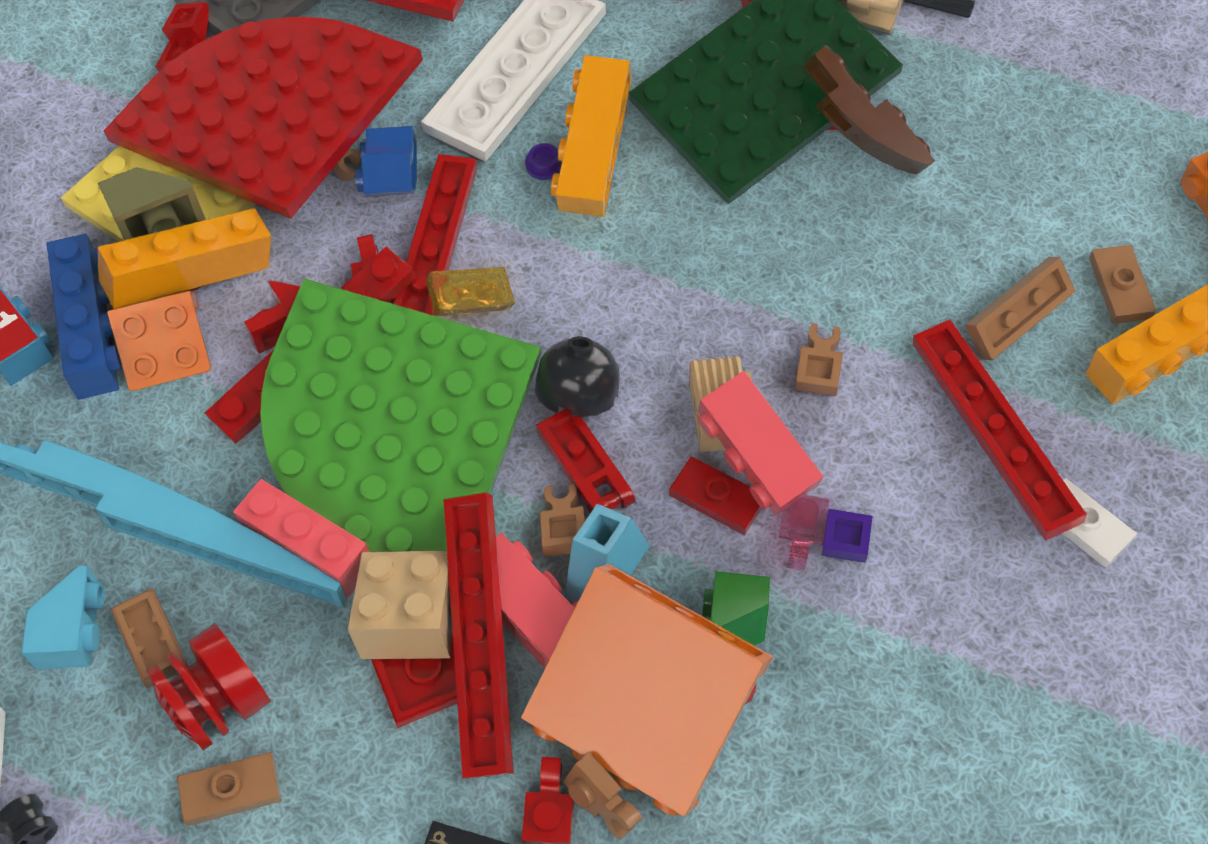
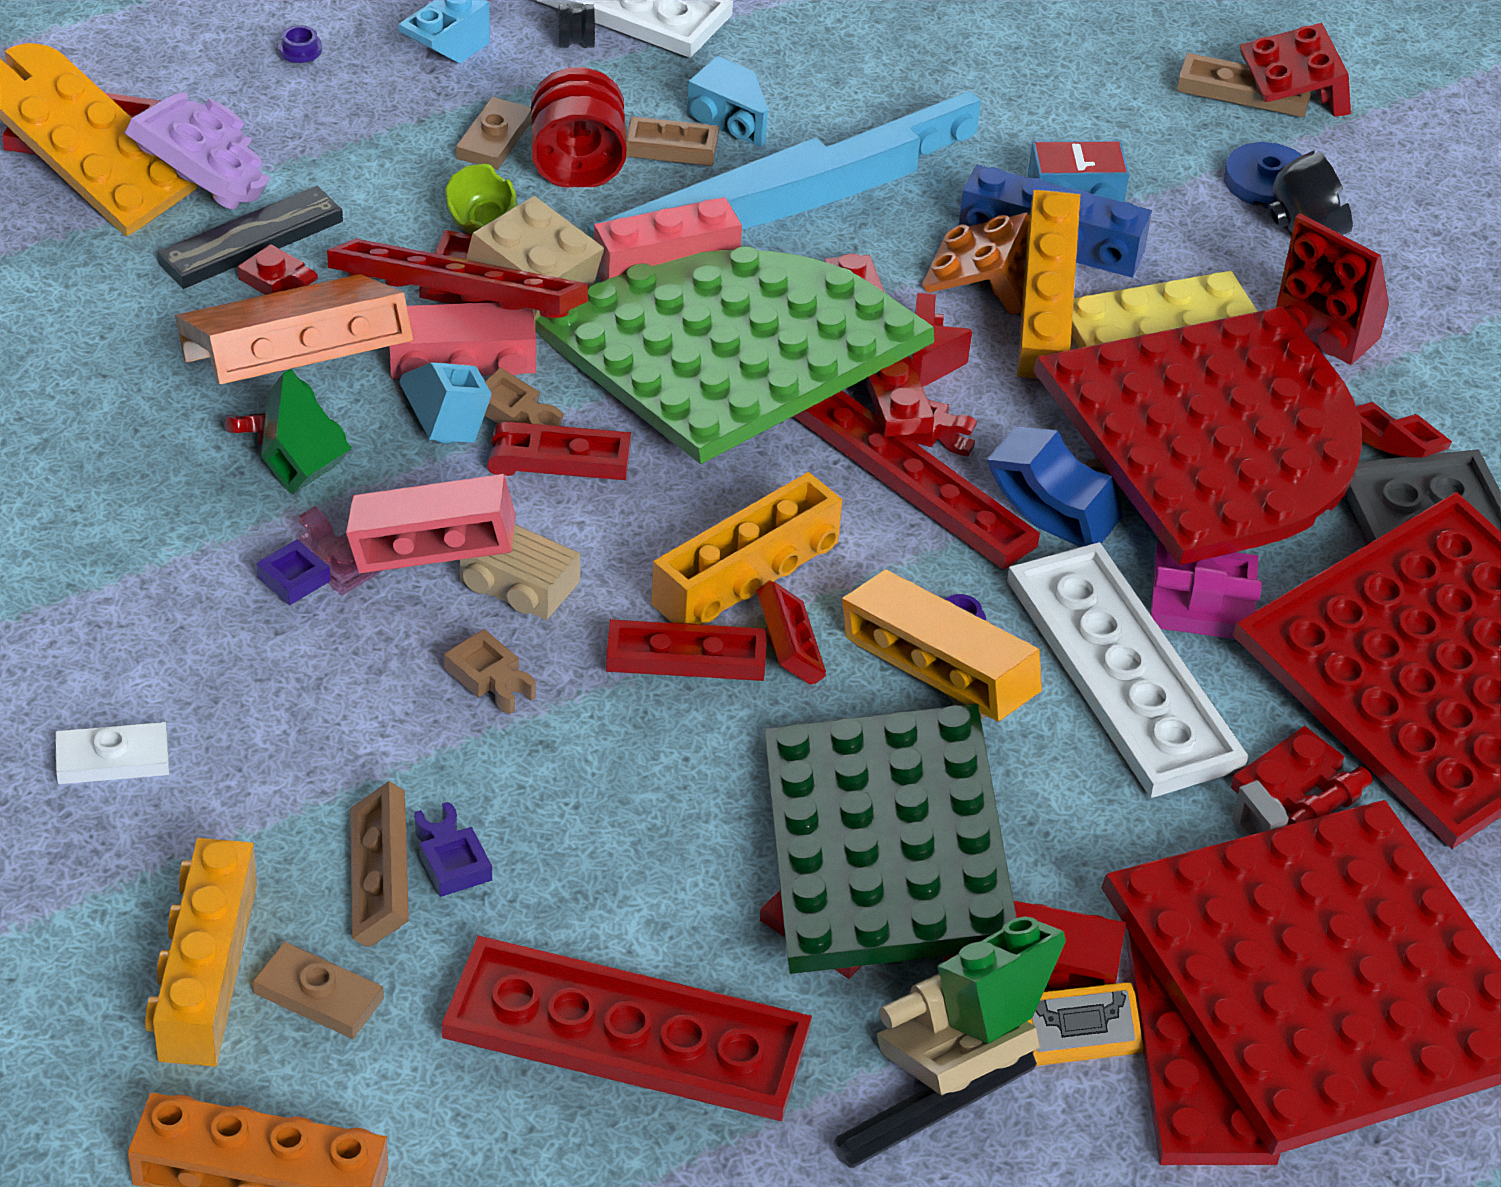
camera: 120 degrees right, 15 degrees down
(77, 107) = (1334, 290): none -> red slope
(150, 202) = (1117, 264): olive slope -> none
(349, 708) = (478, 197): none -> lime hair
(439, 62) = (1204, 594): none -> dark pink plate
(469, 291) = (835, 452): clear yellow plate -> none
(578, 377) = (647, 478): black cylinder -> none
(598, 793) = (247, 285): medium nougat plate -> none
(600, 279) = (746, 551): none -> light orange brick
(640, 229) = (791, 632): none -> red plate
(703, 274) = (686, 650): none -> red plate
(876, 130) = (724, 864): reddish brown slope -> none
(973, 282) = (451, 856): none -> dark purple plate
(999, 430) = (271, 736): red plate -> none
(1000, 133) = (628, 1027): none -> red plate

